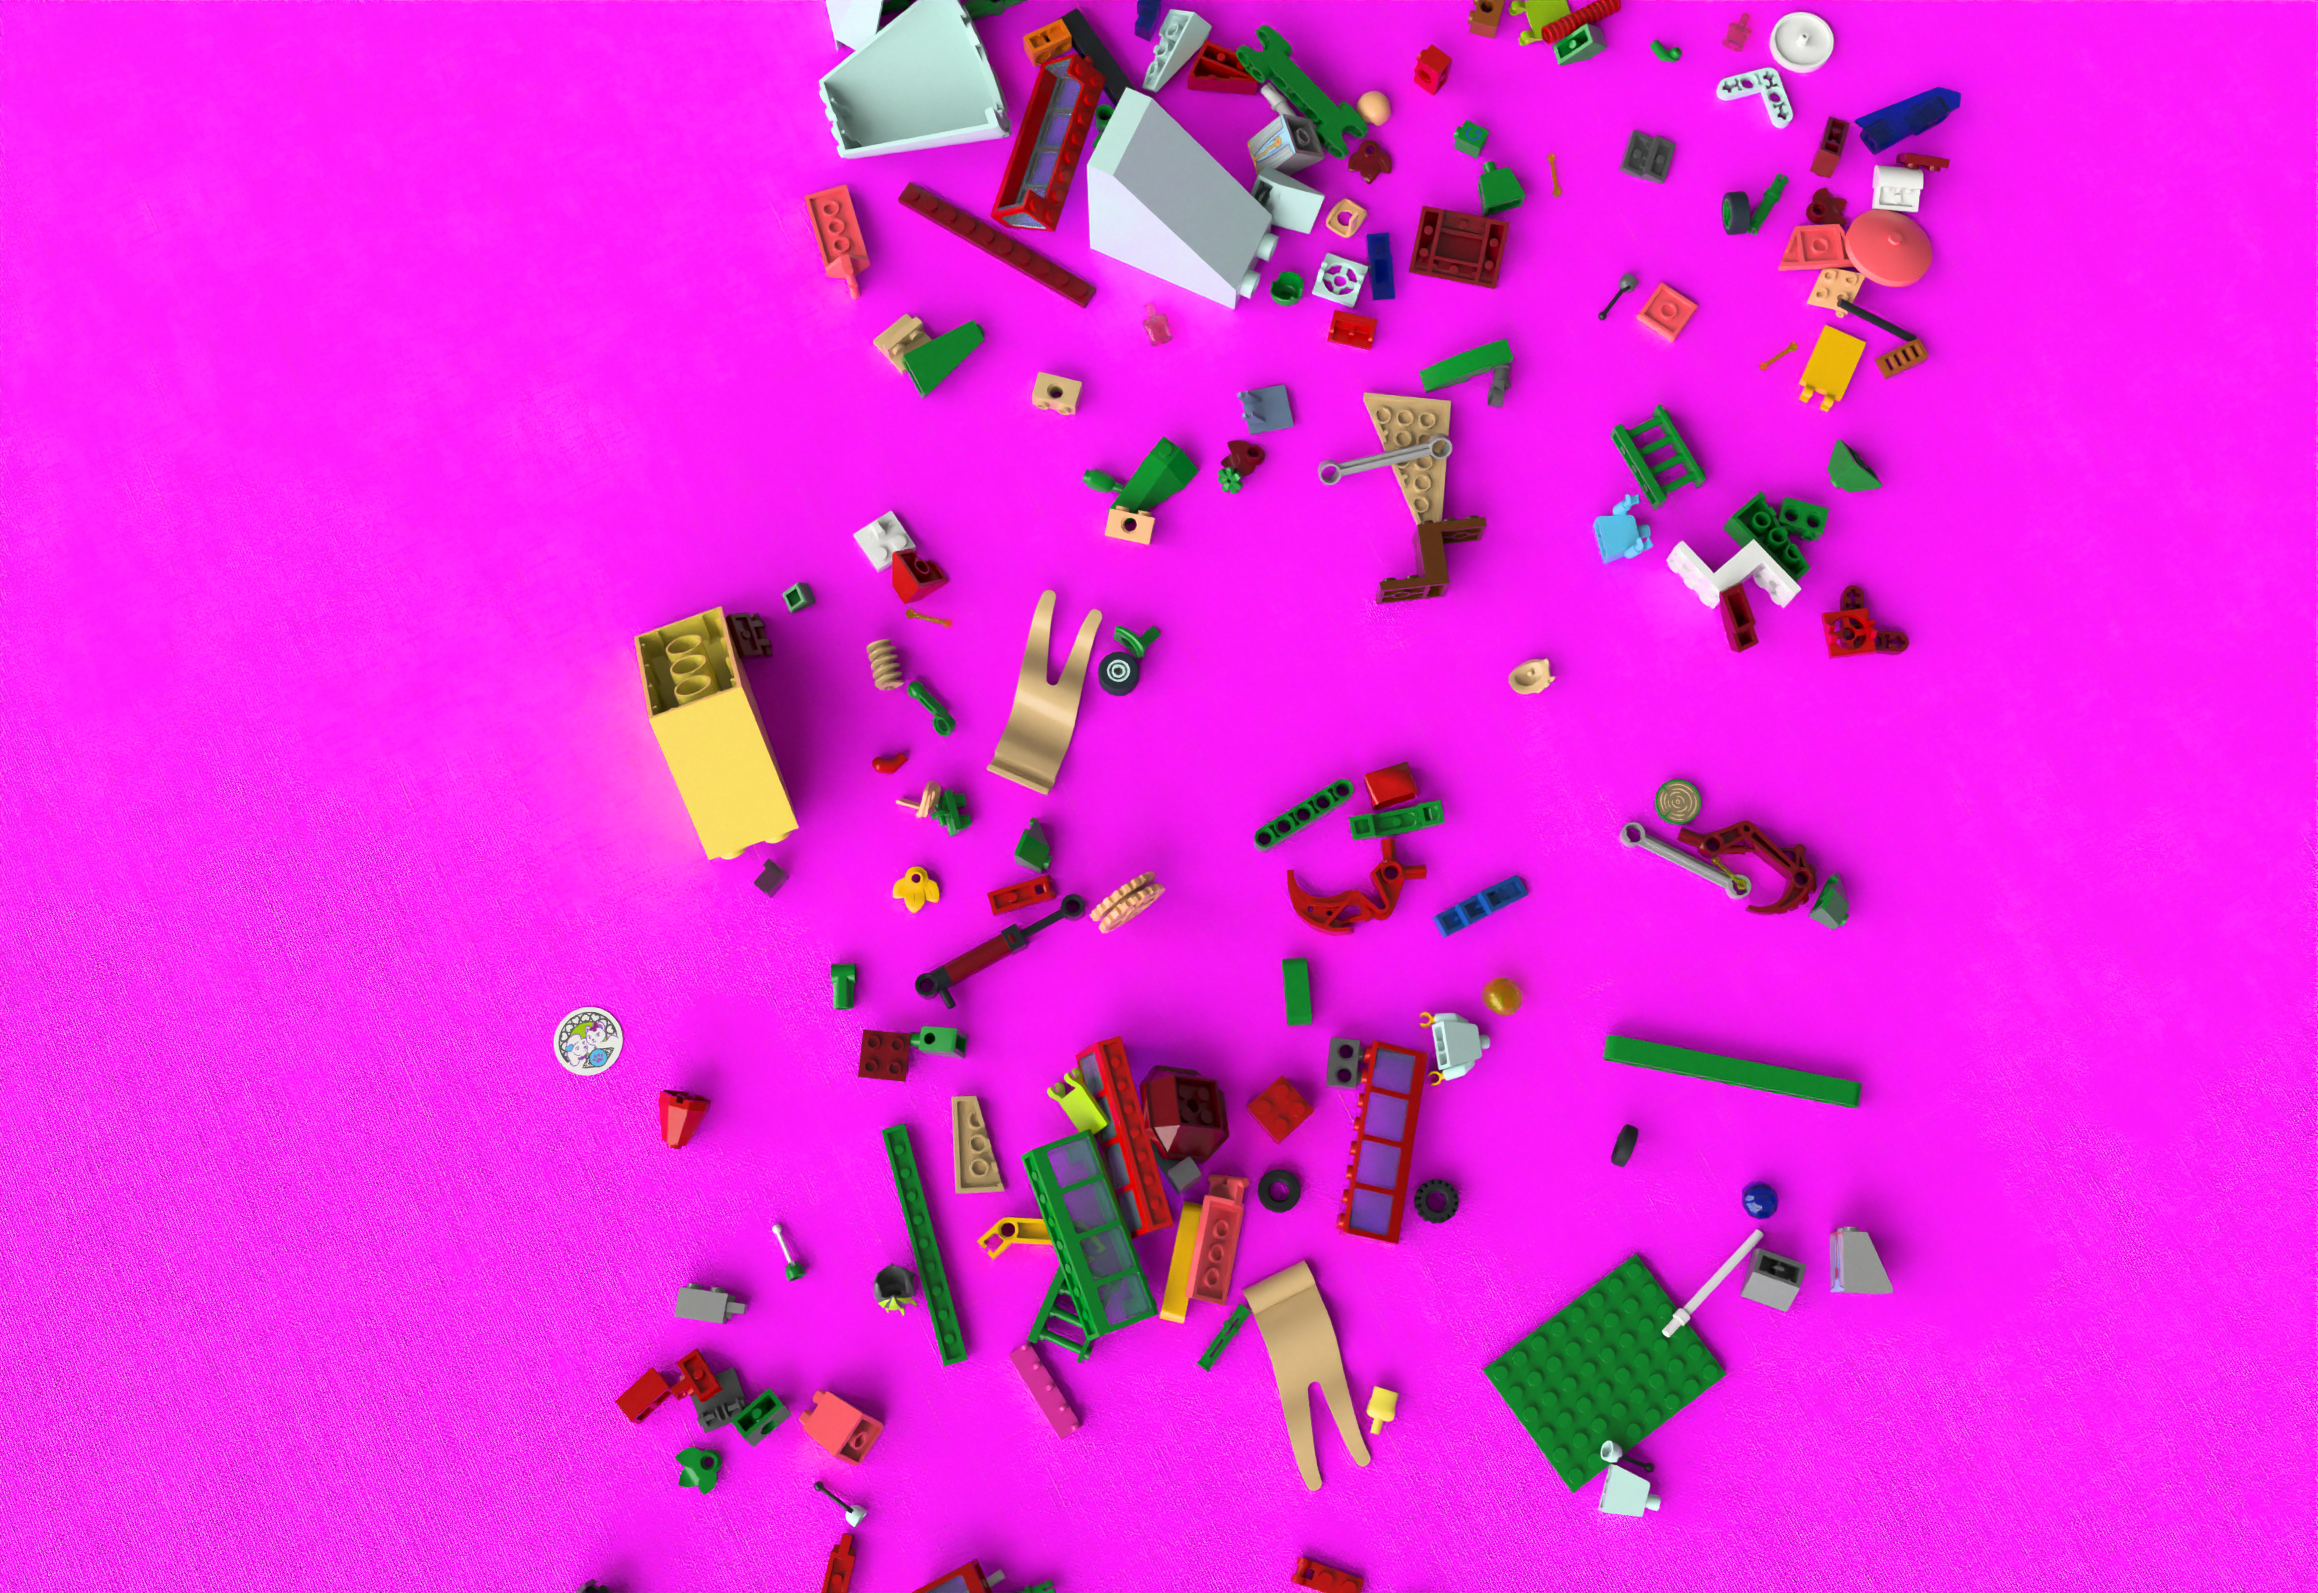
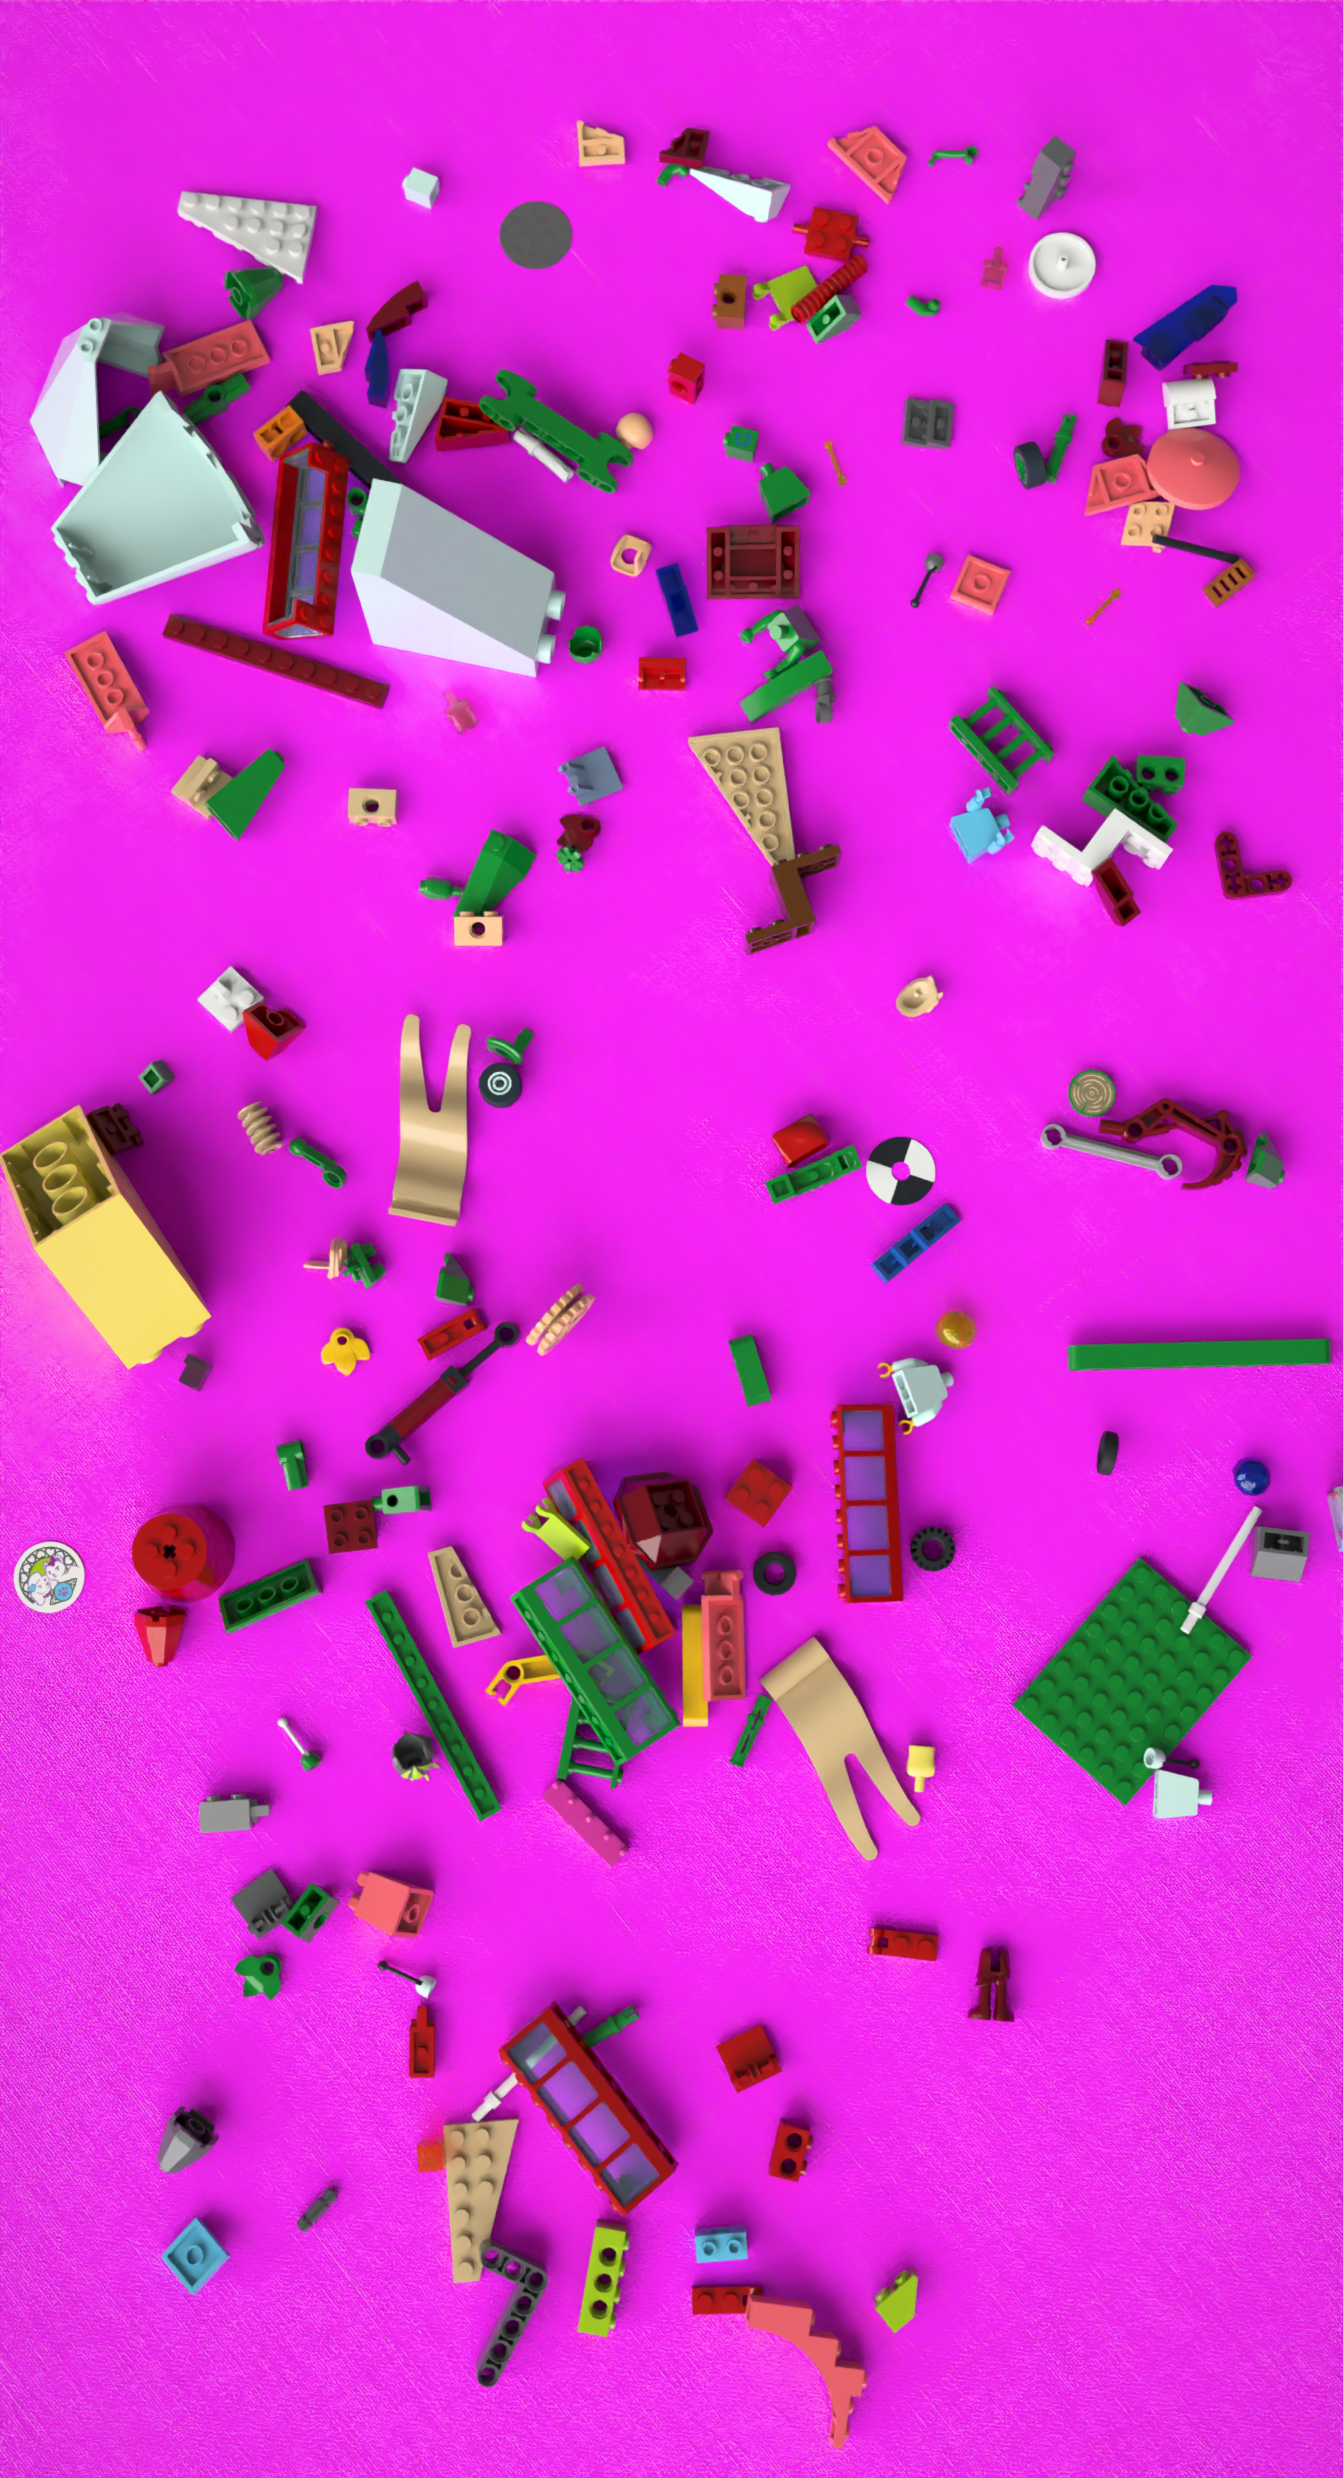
camera: 10 degrees left, 5 degrees up
(644, 1396) = (190, 1916): red hinge -> none
(696, 1378) = (237, 1888): red hinge -> none
(735, 1054) = (202, 1553): none -> red cone
(791, 1105) = (269, 1596): none -> green slope
(889, 766) = (288, 1231): red arm -> none
(910, 615) = (274, 1069): hinge -> none
(1286, 145) = (551, 495): light grey slope -> none
(1287, 200) = (565, 551): light aqua slope -> none
(1310, 806) = (723, 1179): green beam -> none
(1337, 1063) = (805, 1433): dark grey brick -> none
(1346, 299) = (651, 641): light aqua piece -> none
(1370, 164) = (644, 492): dark red plate -> none
(1385, 459) = (723, 803): light grey piece -> none
(1386, 888) = (818, 1246): red piece -> none
(1481, 318) = (791, 632): none -> green torso
(1494, 822) = (921, 1171): none -> sticker
(1741, 884) = (1172, 1164): clear neon green hinge -> none
(1761, 86) = (1029, 322): light aqua beam -> none
(1831, 366) = (1158, 606): yellow tile -> none
(1831, 637) = (1239, 861): red piece -> none

